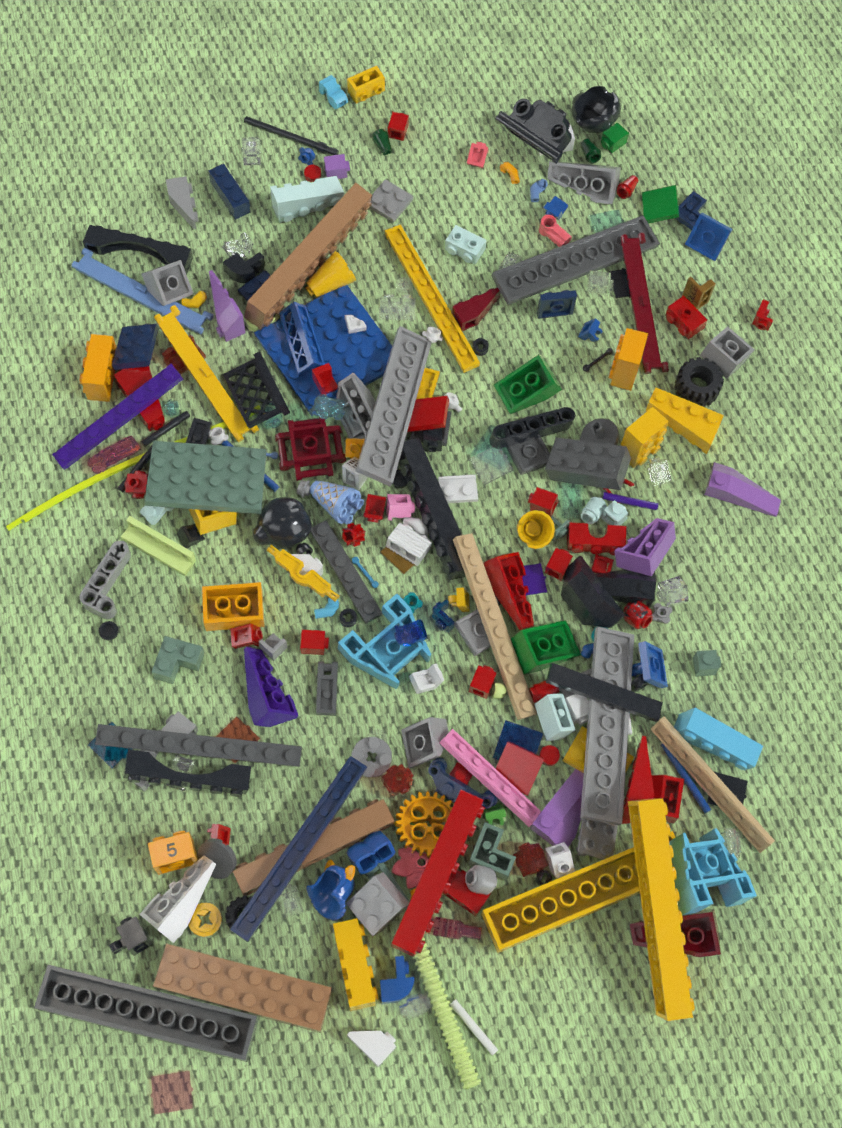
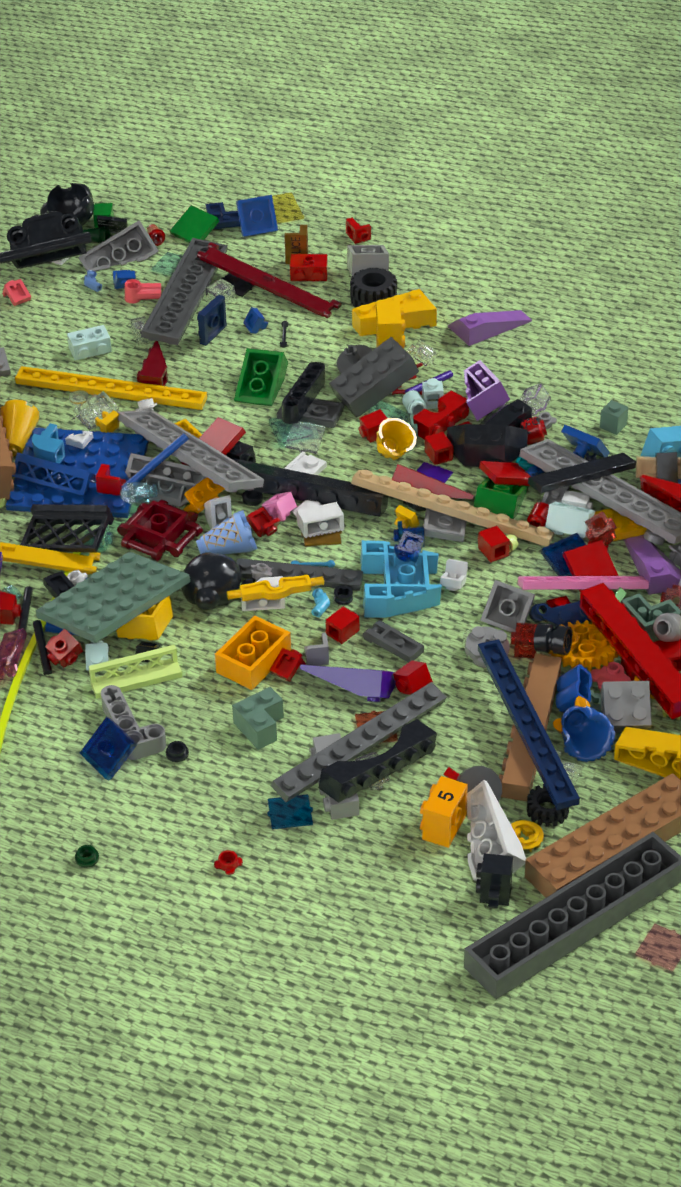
camera: 45 degrees left, 25 degrees down
(29, 738) = (228, 856): none -> red plate
(70, 588) = (108, 748): none -> clear blue plate
(294, 730) = (412, 677): none -> red brick
(304, 488) = (191, 552): light grey plate -> none
(314, 551) = (260, 570): none -> light grey plate
(322, 310) = (48, 445): none -> dark azure brick
(353, 534) = (267, 543): red gear -> none
(358, 396) = (158, 459): none -> blue bar
(389, 328) = (109, 422): none -> yellow tile
(401, 805) = (555, 639): none -> black wheel
(484, 342) = (191, 384): black bush -> none
(508, 167) = (56, 284): light orange arm -> none
(555, 750) = (600, 528): none -> clear red brick
(569, 633) = (505, 473): none -> red tile
(604, 152) = (114, 224): none -> piece
(627, 359) = (312, 305): light orange brick -> none
(669, 750) = (667, 466): none -> black tile
(745, 242) = (286, 208): none -> clear yellow piece

